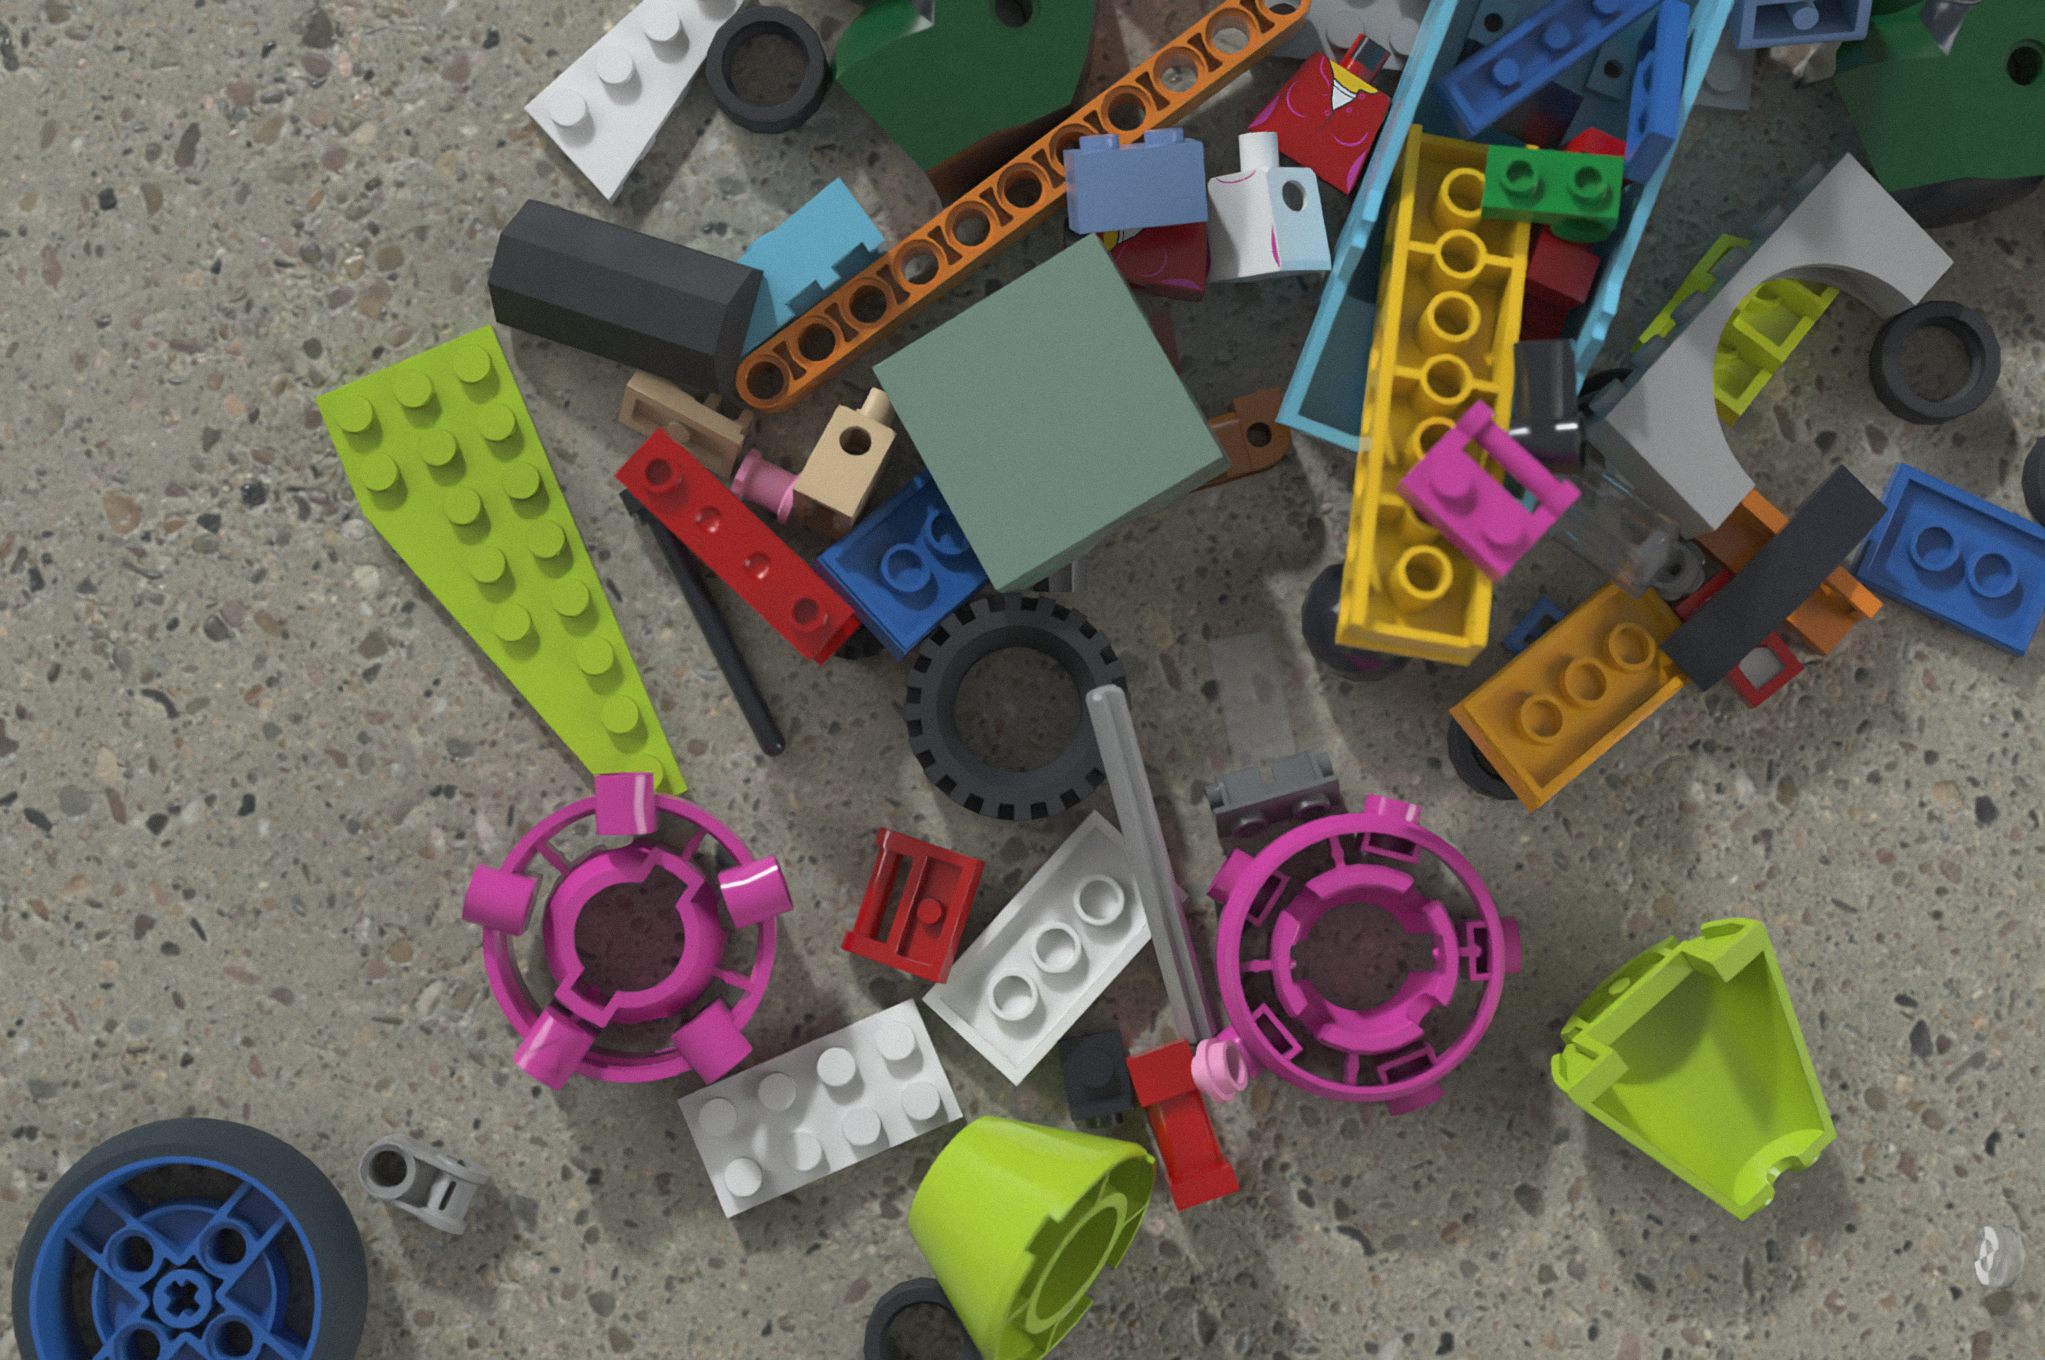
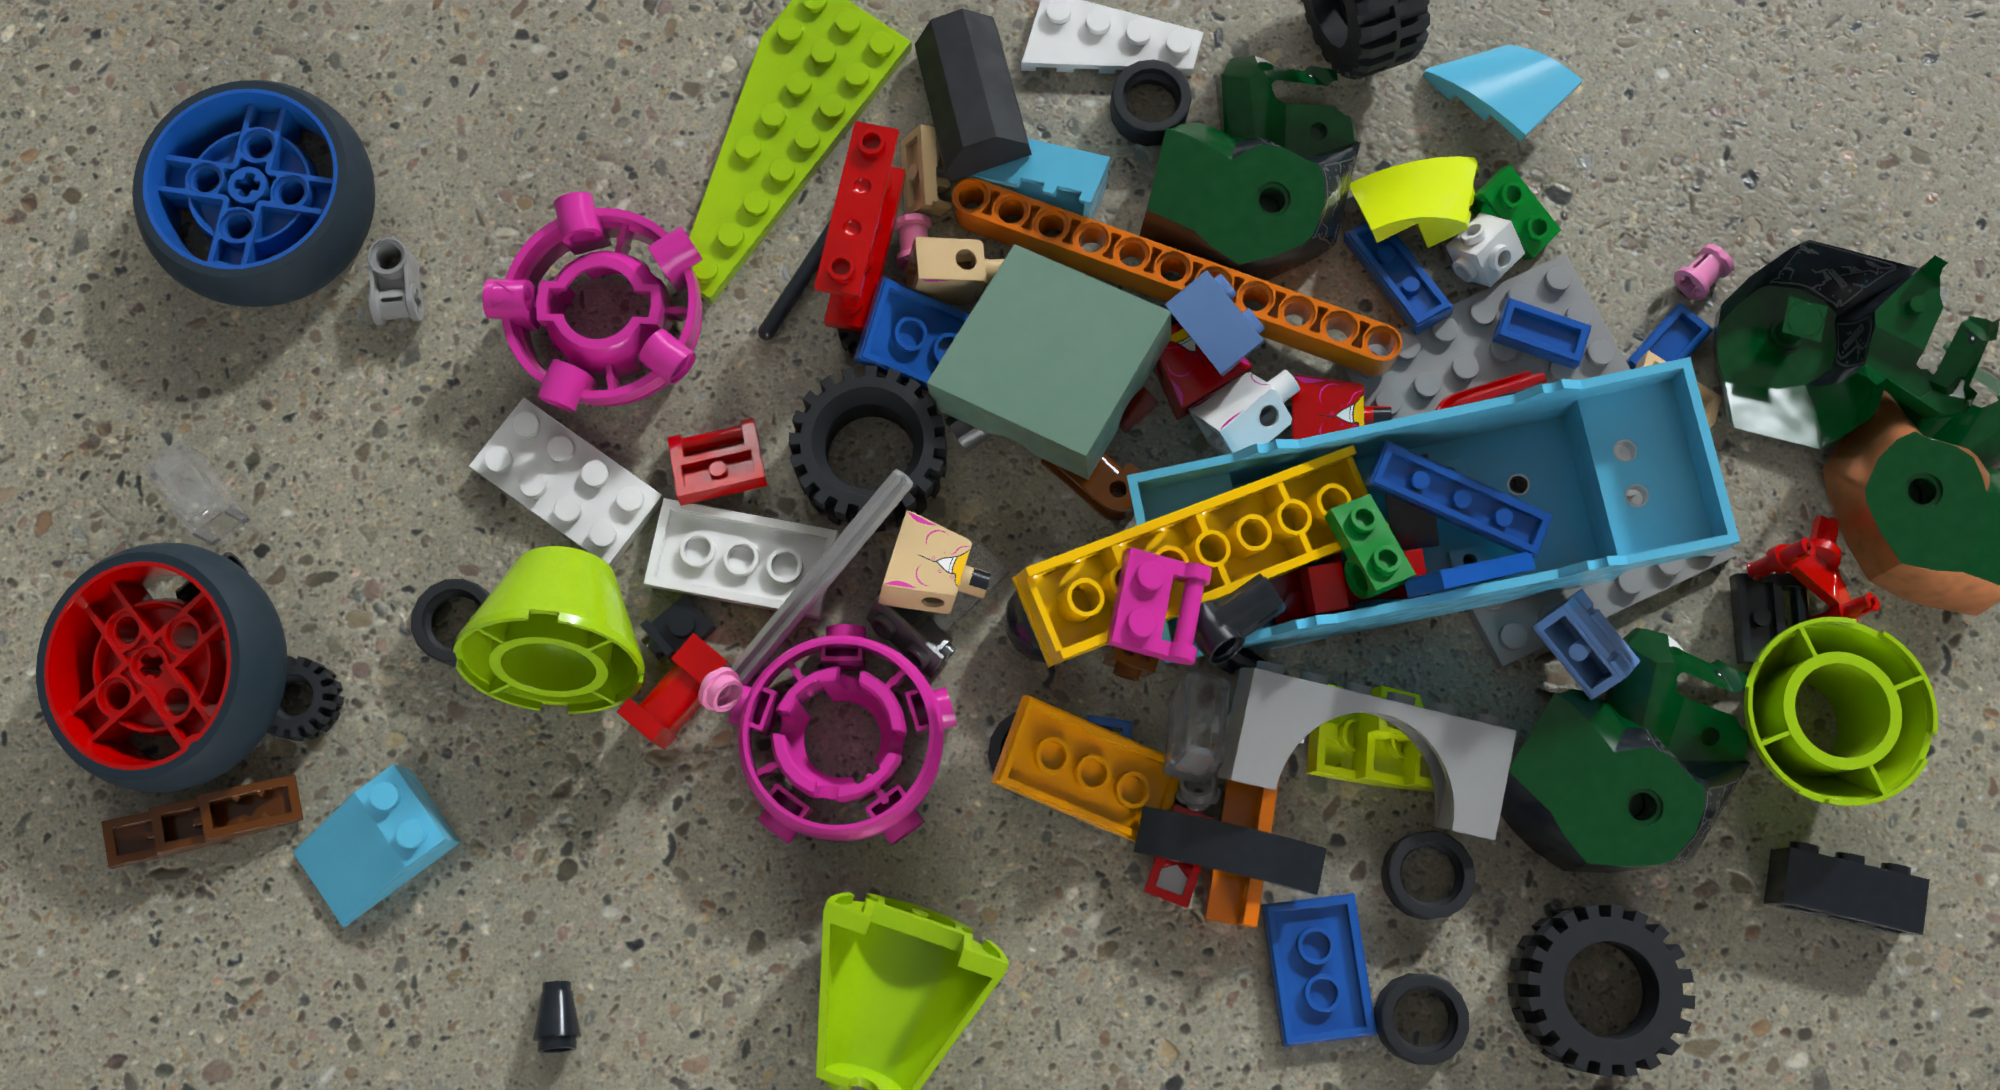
camera: 60 degrees right, 10 degrees down
(1219, 725) = (930, 568): none -> tan torso

